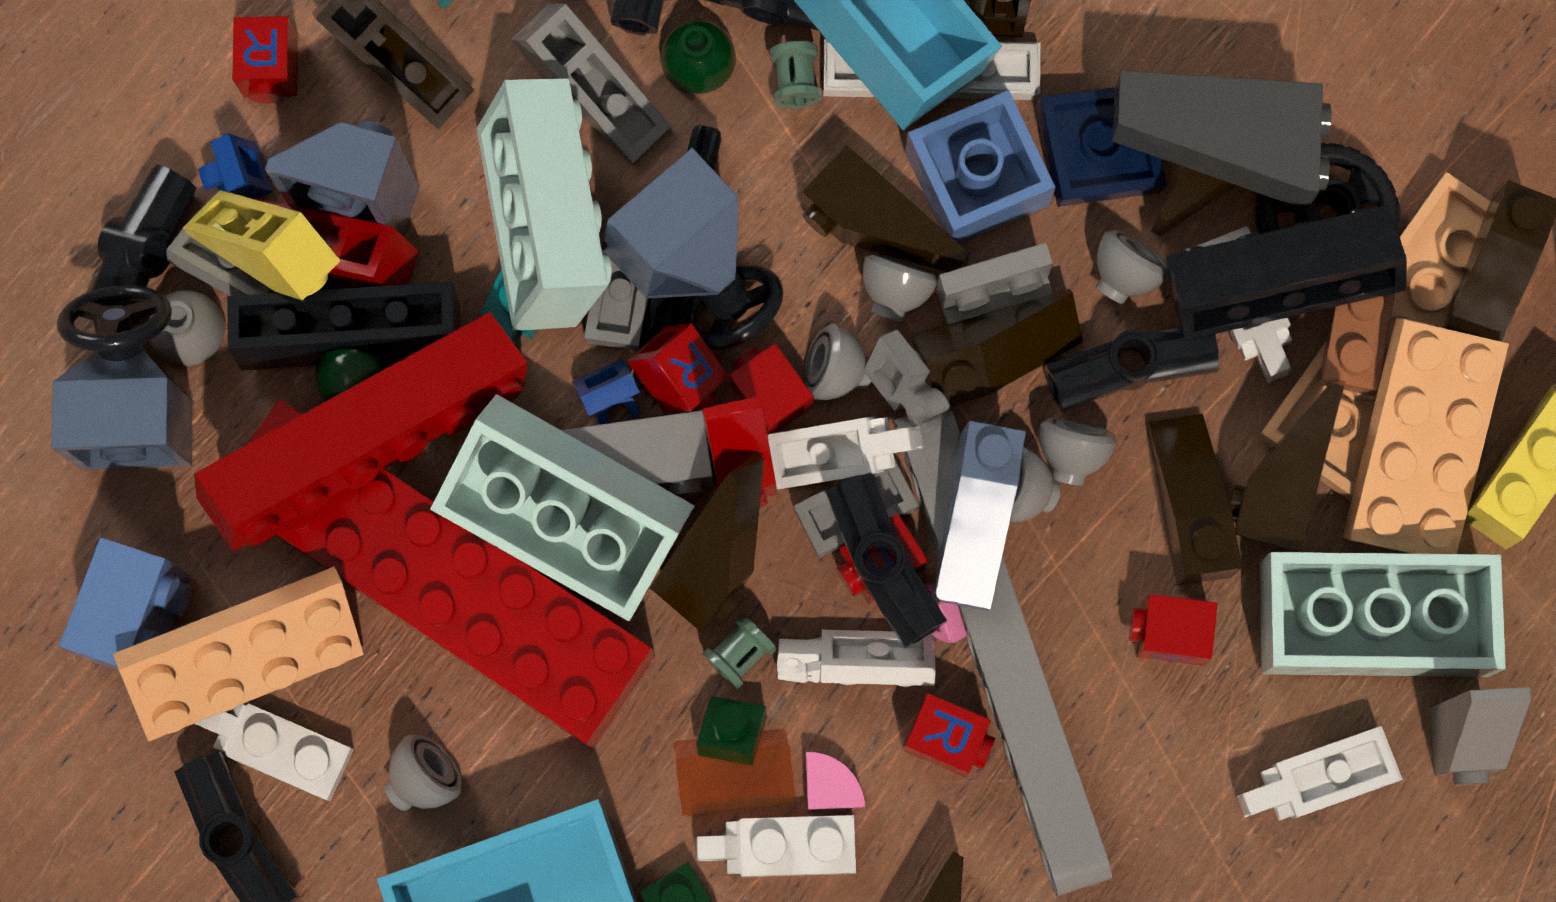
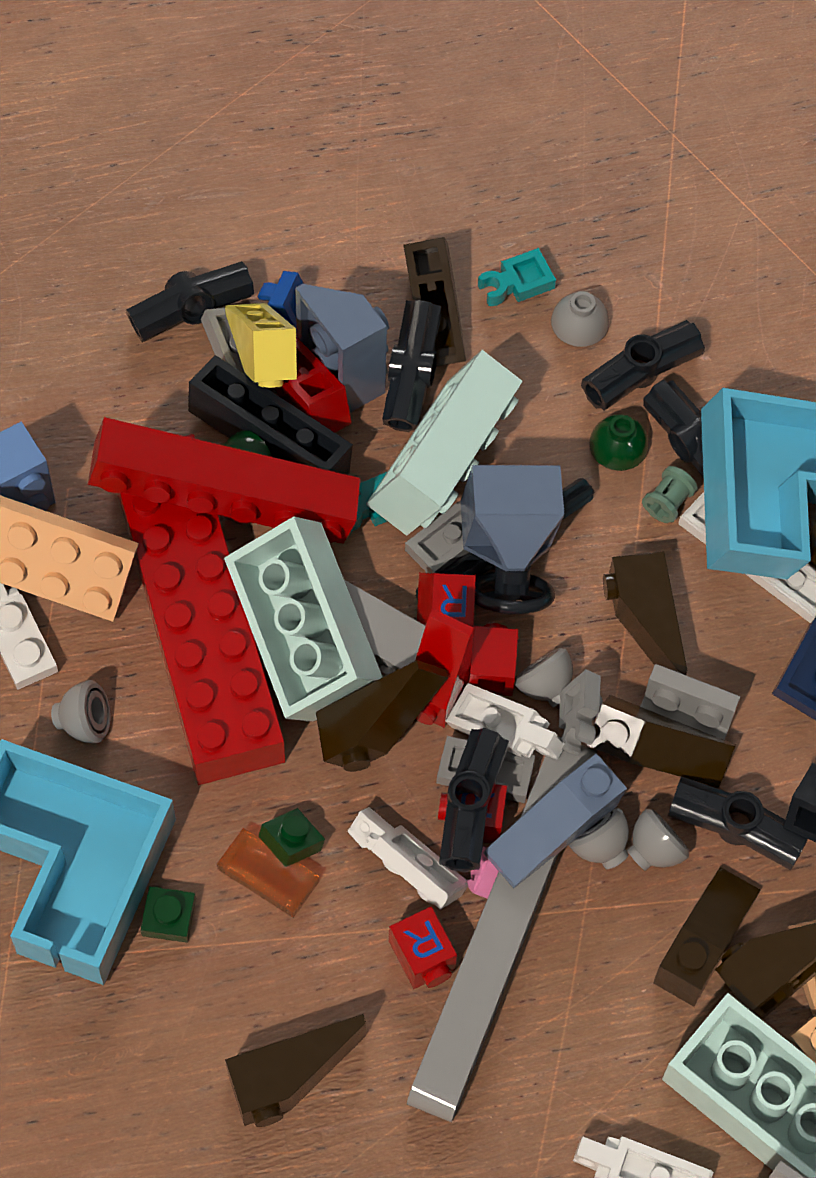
camera: 35 degrees right, 15 degrees down
(119, 402) = (100, 368): sand blue piece -> none
(193, 331) = (176, 363): light grey brick -> none
(265, 58) = (358, 253): red brick -> none
(430, 141) = (412, 365): none -> black piece
(605, 388) = (393, 583): blue tile -> none
(609, 100) = (540, 404): light grey slope -> none
(739, 651) = (337, 795): sand green bush -> none
(784, 846) = (262, 934): white hinge -> none
(831, 784) = (324, 921): bright pink tile -> none
(896, 285) = (624, 659): light grey brick -> none
(979, 168) = (738, 629): medium blue brick -> none
(1128, 267) = (784, 759): light grey brick -> none
(1174, 629) = (626, 1001): red brick -> none

